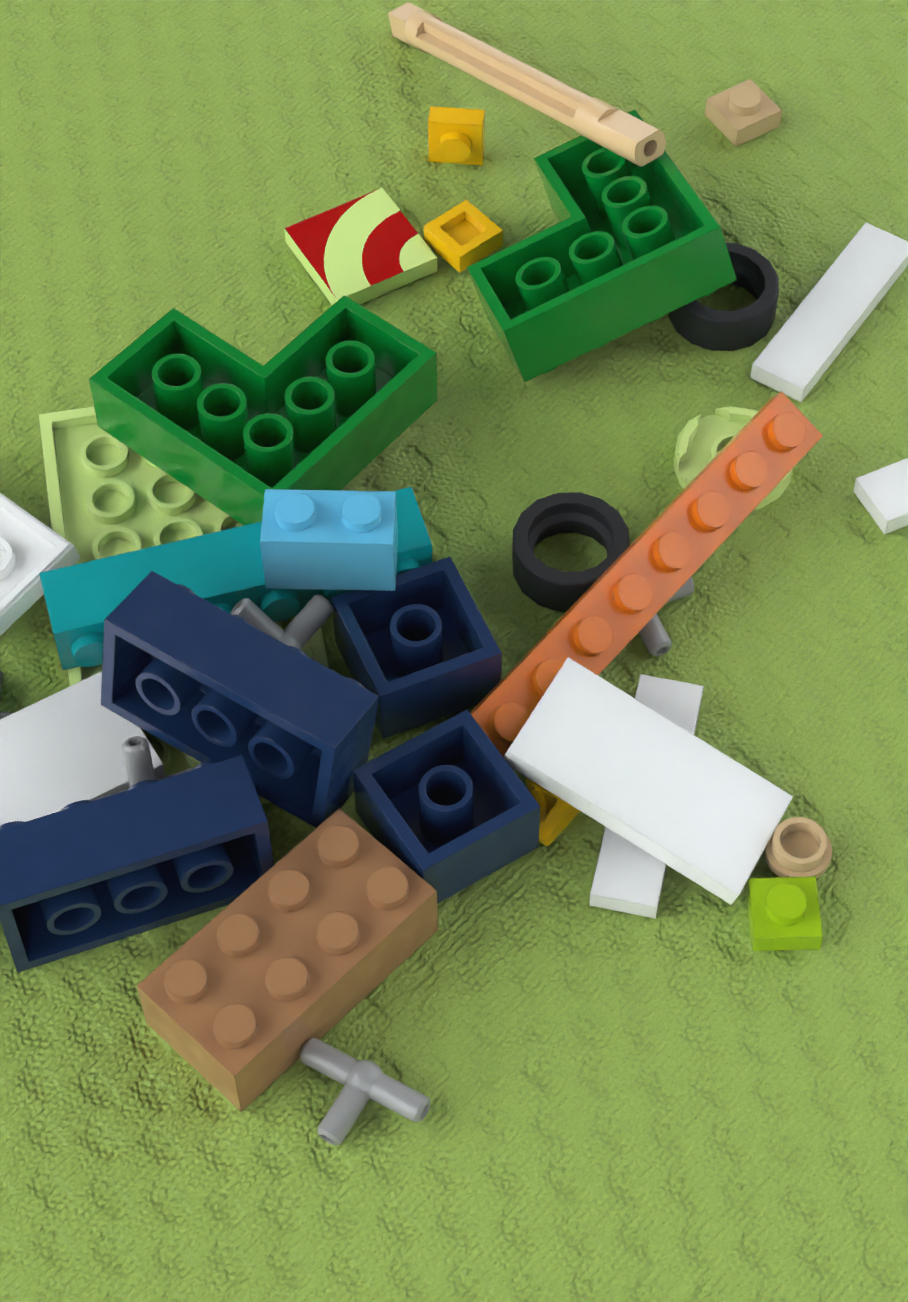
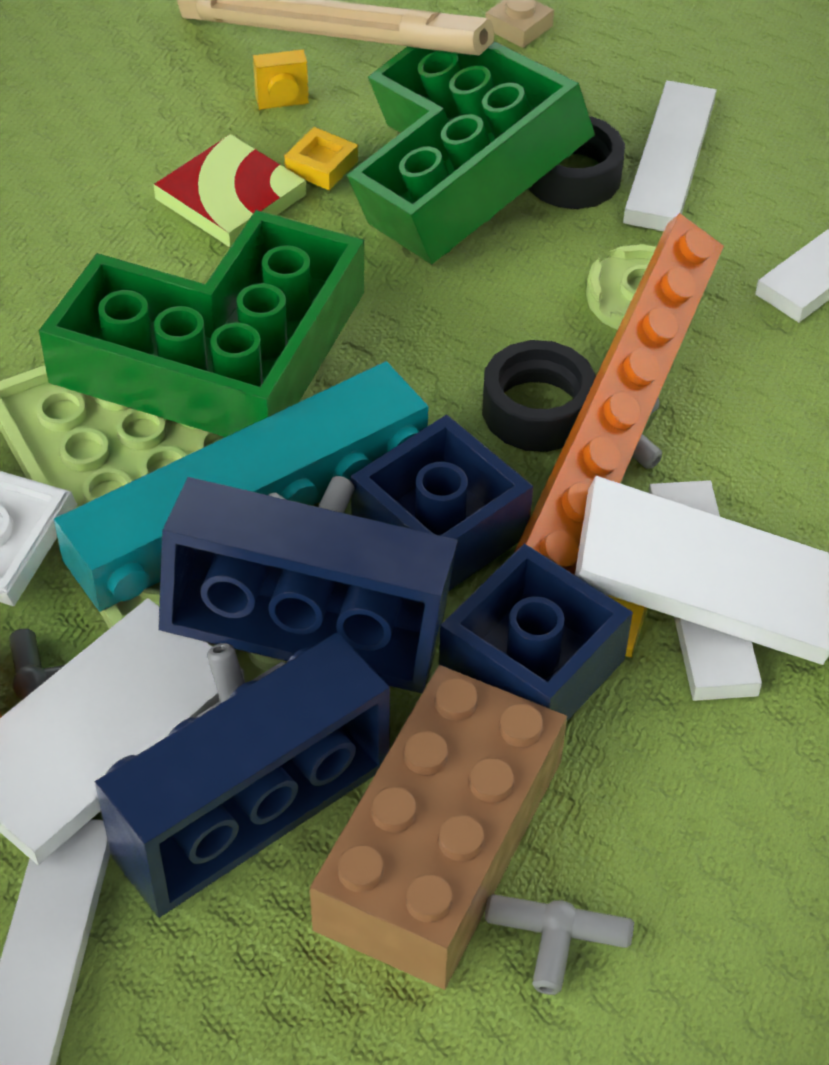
camera: 20 degrees left, 5 degrees down
(329, 539) = (341, 416): medium azure brick -> none

